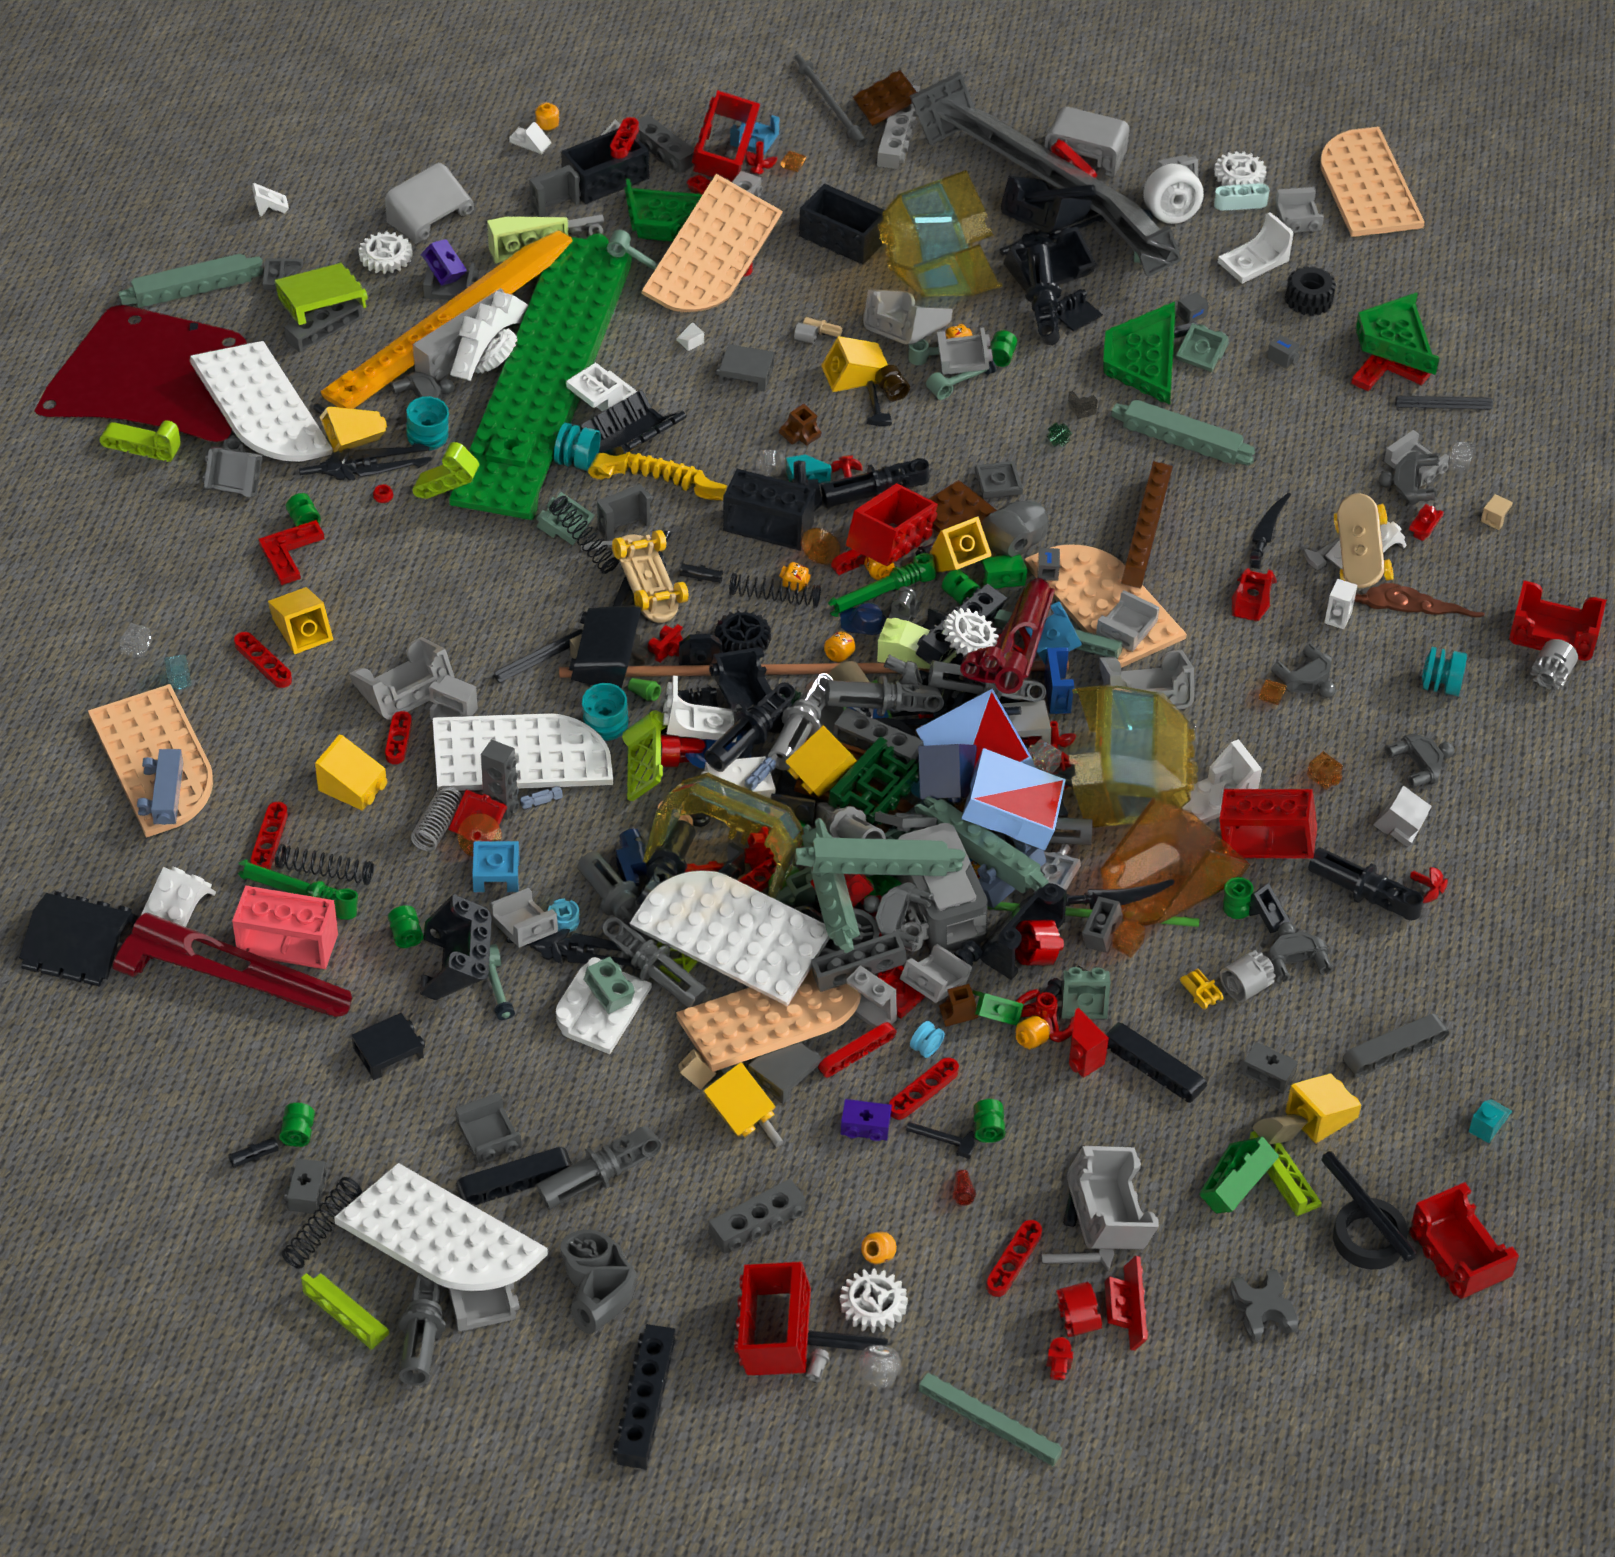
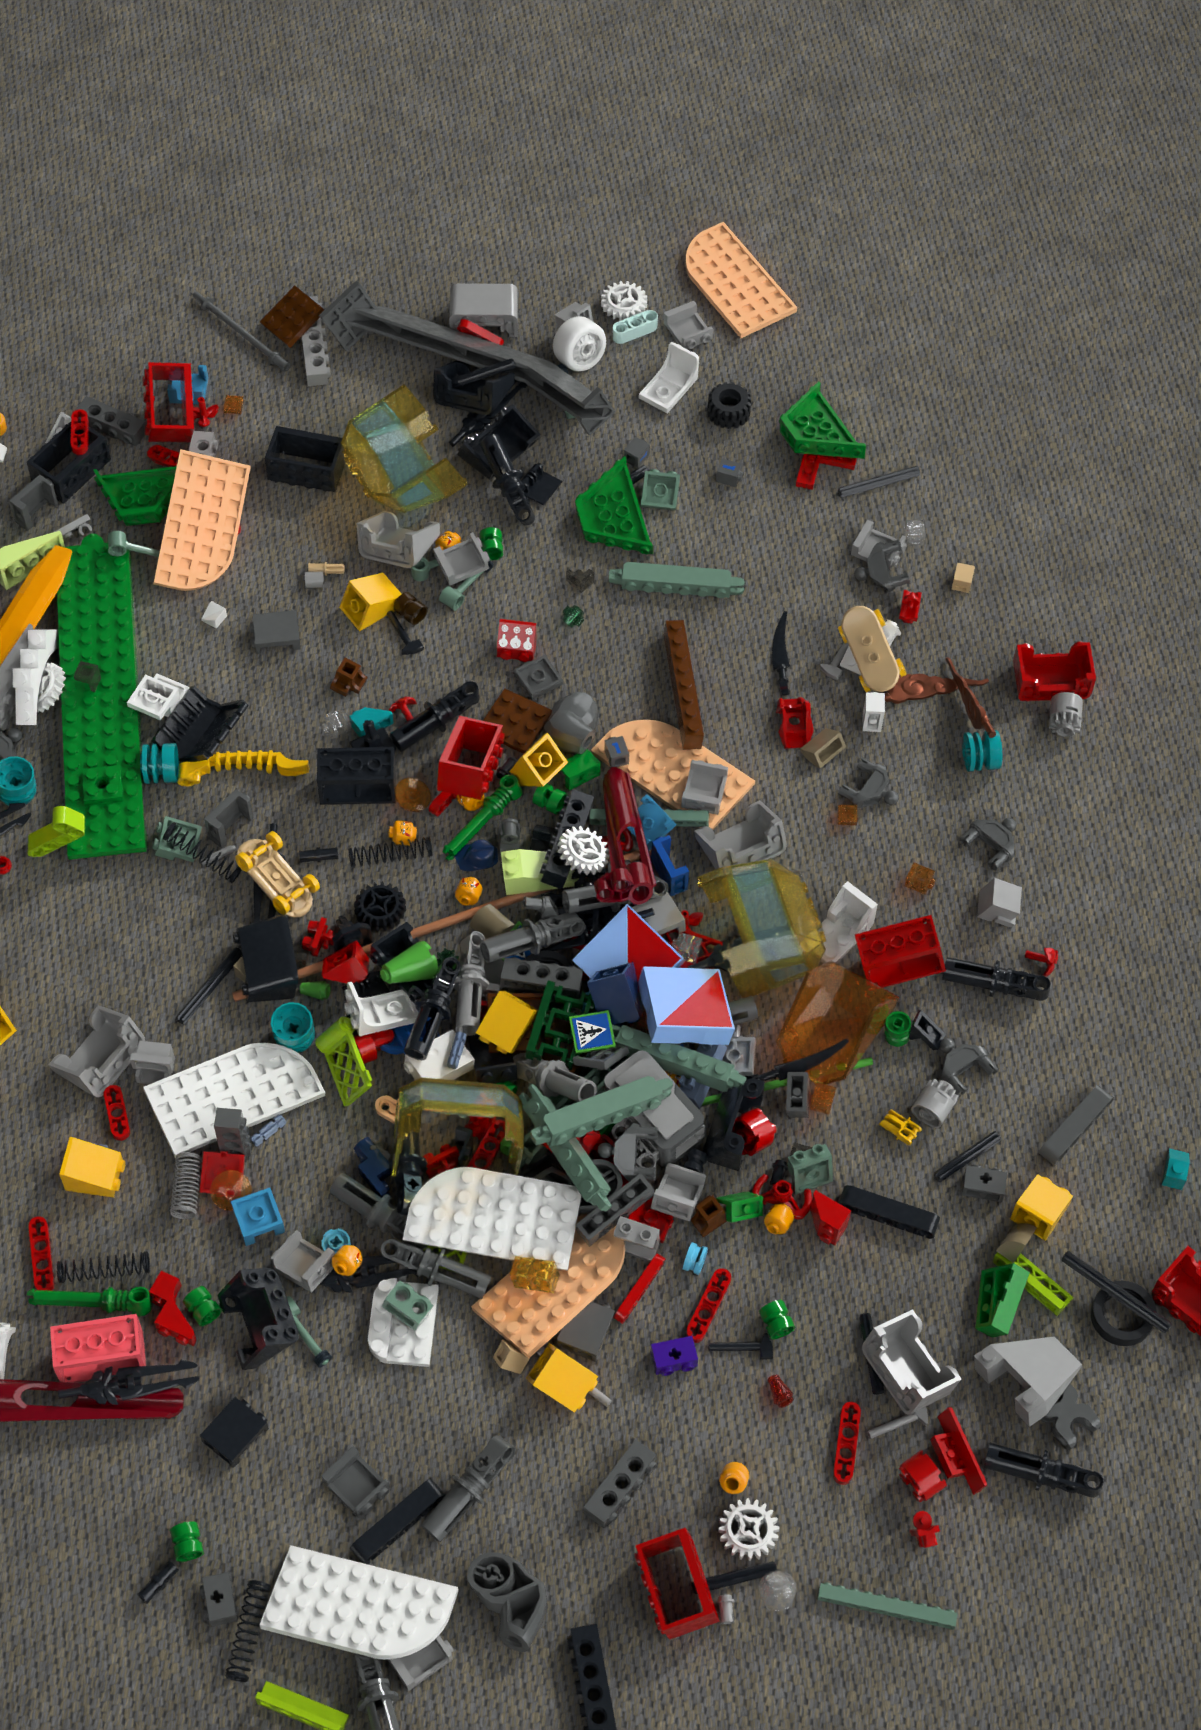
camera: 20 degrees left, 10 degrees up
(277, 962) = (105, 1387): none -> black sword
(368, 929) = (170, 1319): none -> red arch
(539, 345) = (89, 674): none -> clear smoke panel
(566, 928) = (347, 1260): none -> light orange head
(690, 670) = (346, 964): none -> red slope
(744, 685) = (411, 965): none -> bright green cone
(750, 996) = (534, 1274): none -> clear yellow brick
(905, 795) = (592, 1032): none -> piece
(989, 437) = (516, 640): none -> red slope
(1214, 1347) = (1042, 1470): none -> black piece
(1249, 1251) = (1038, 1365): none -> light grey wedge
(1264, 1038) = (967, 1156): none -> black axle
(1274, 624) = (823, 747): none -> dark tan brick
(1453, 636) = (974, 711): none -> copper piece

